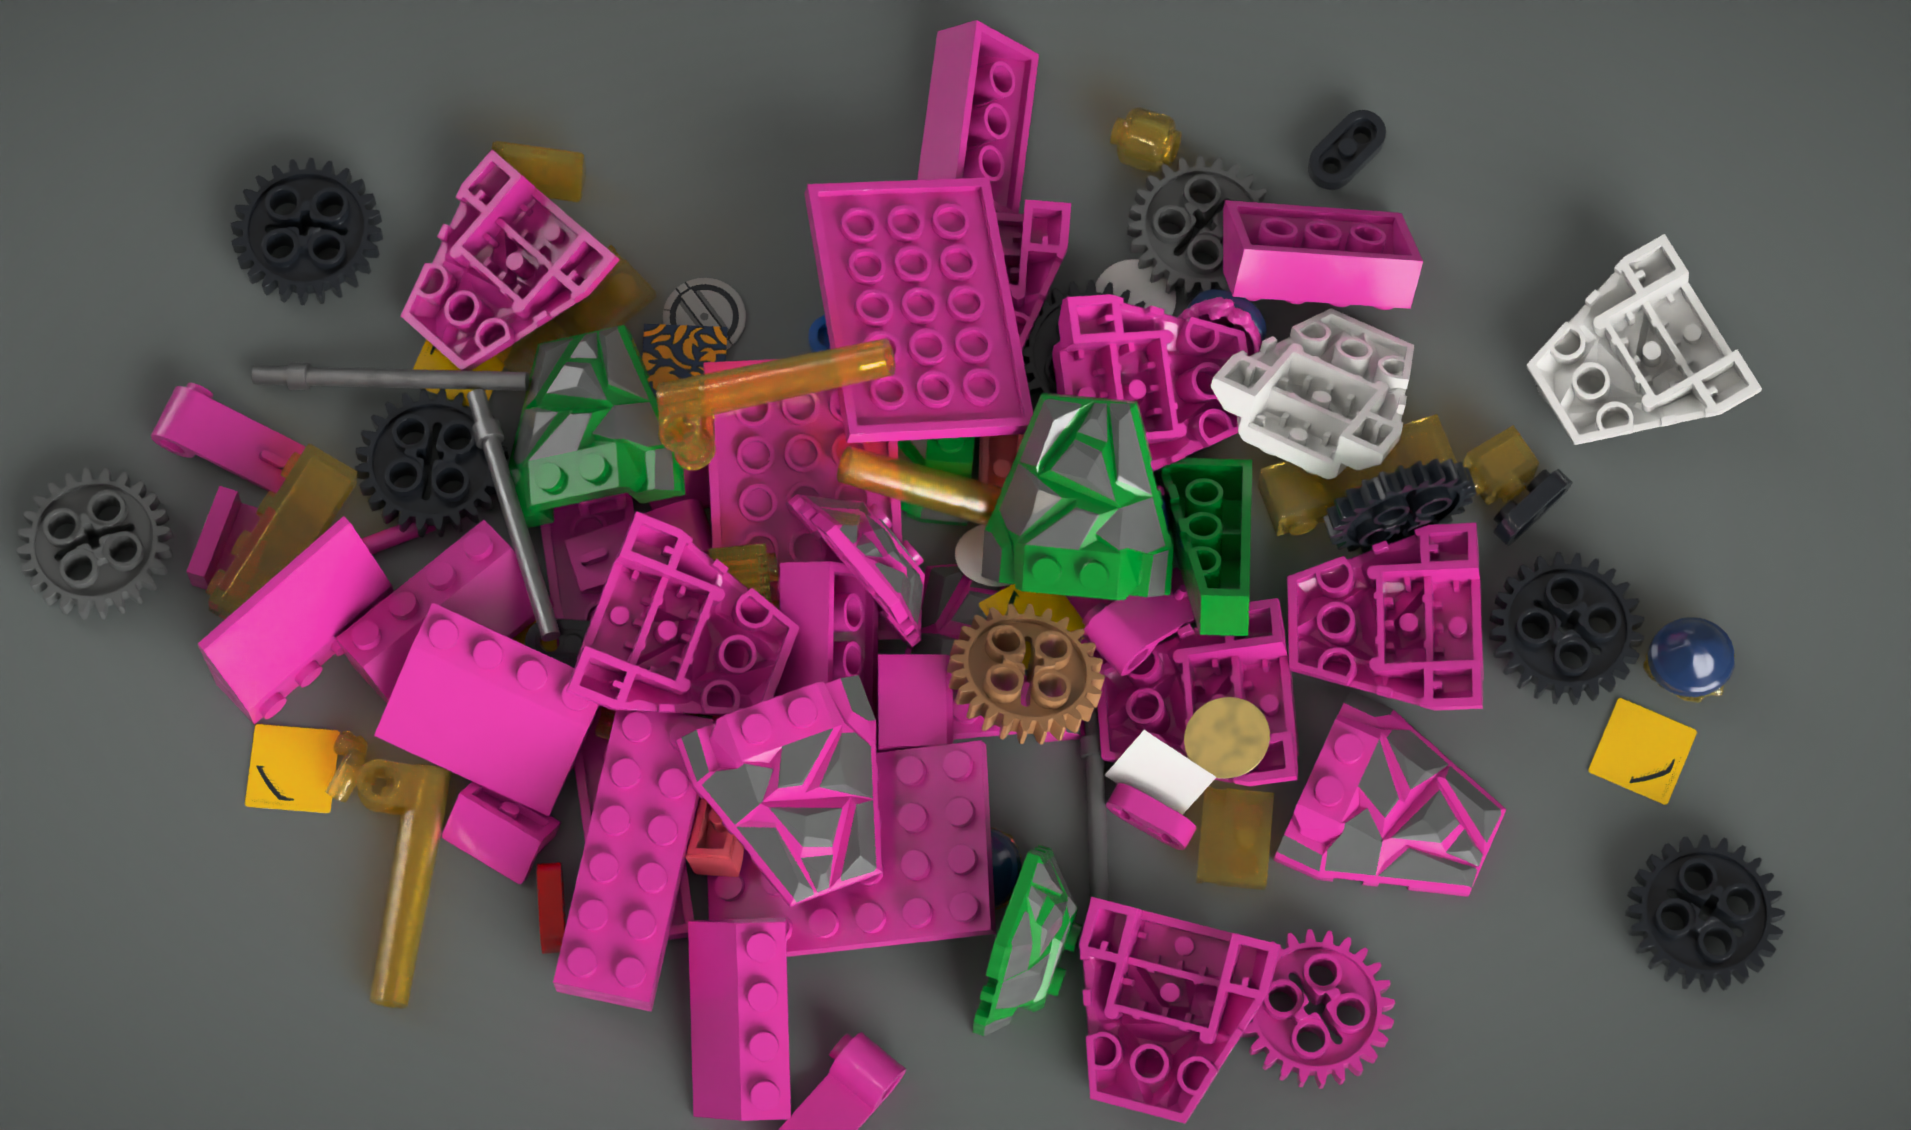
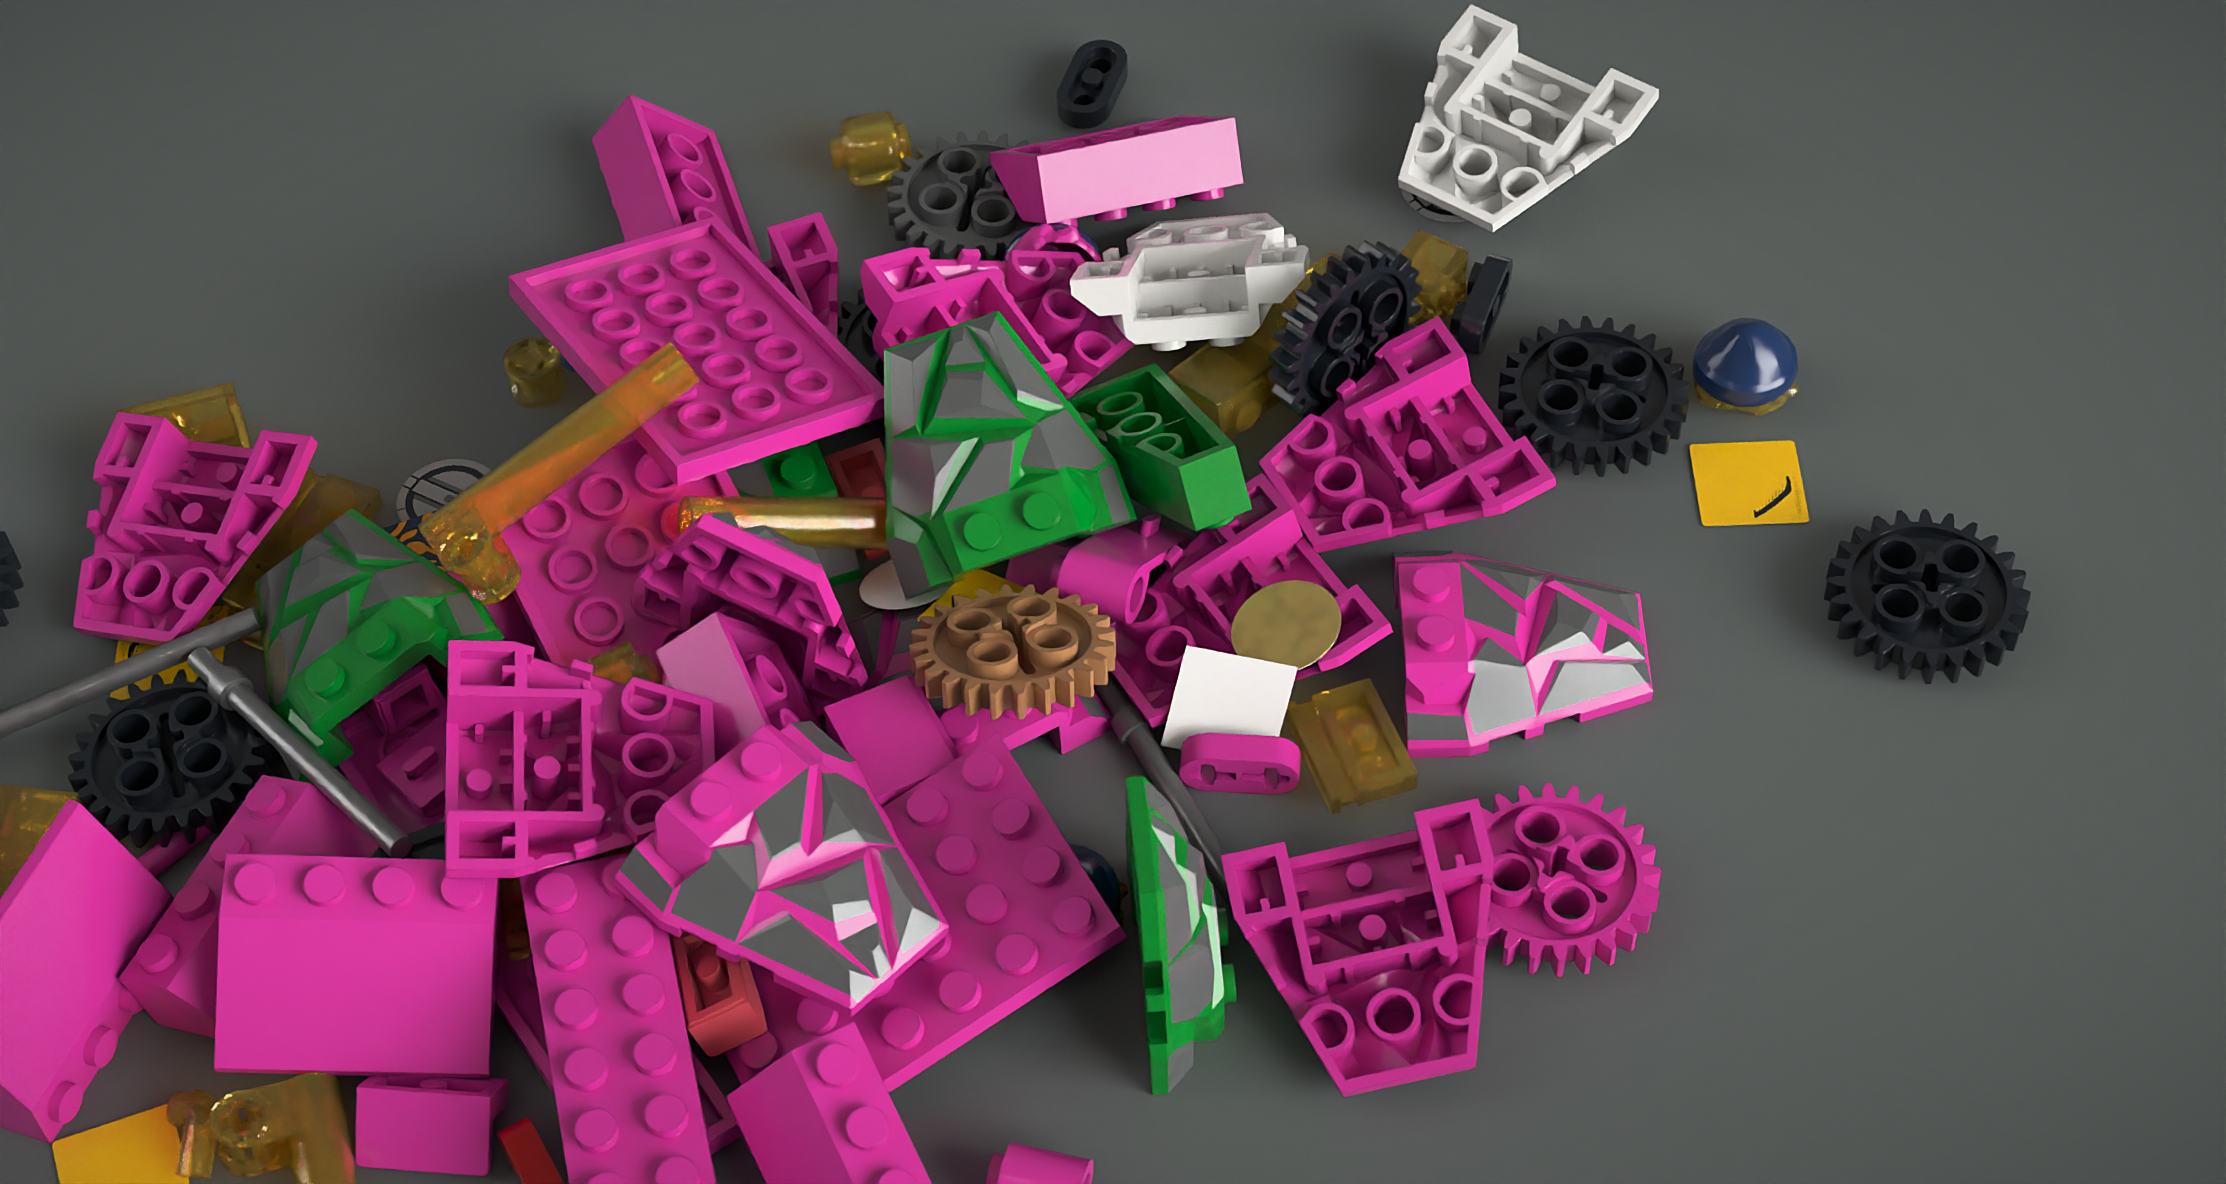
camera: 20 degrees left, 20 degrees down
(797, 246) = (535, 373): none -> clear yellow wheel

